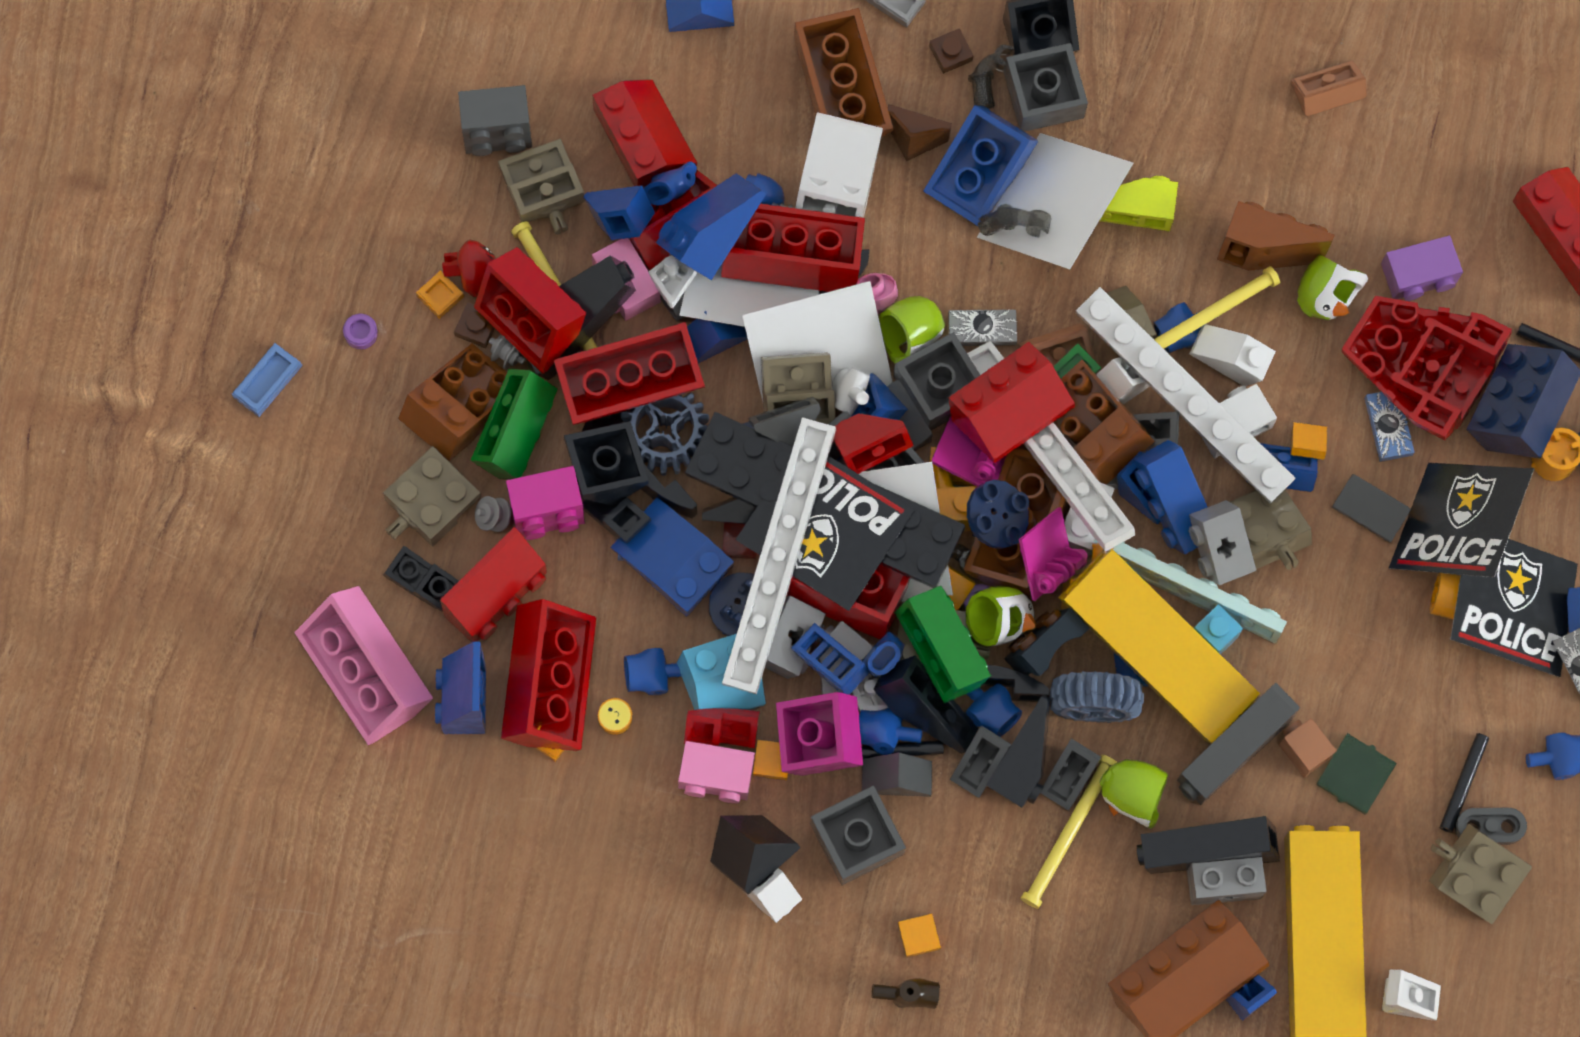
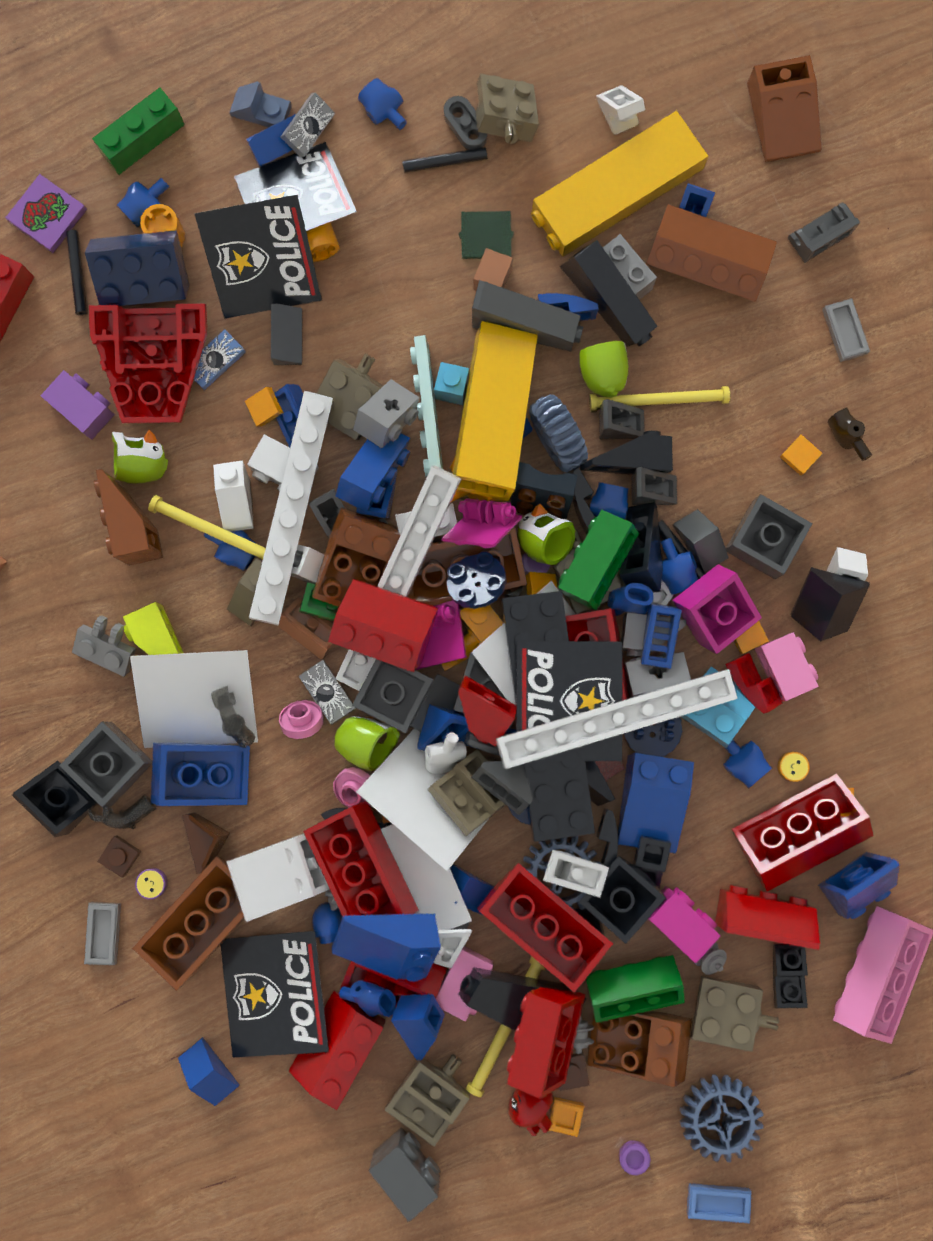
camera: 115 degrees left, 10 degrees up
(319, 415) = (746, 1117): none -> sand blue gear
(662, 427) = (576, 873): none -> white slope
(731, 107) = (274, 995): none -> black sticker
(906, 63) = (151, 883): none -> light yellow tile
(971, 284) = (301, 719): none -> bright pink plate
(1160, 149) = (104, 649): none -> light grey hinge
(1221, 803) = (585, 308): none -> blue slope

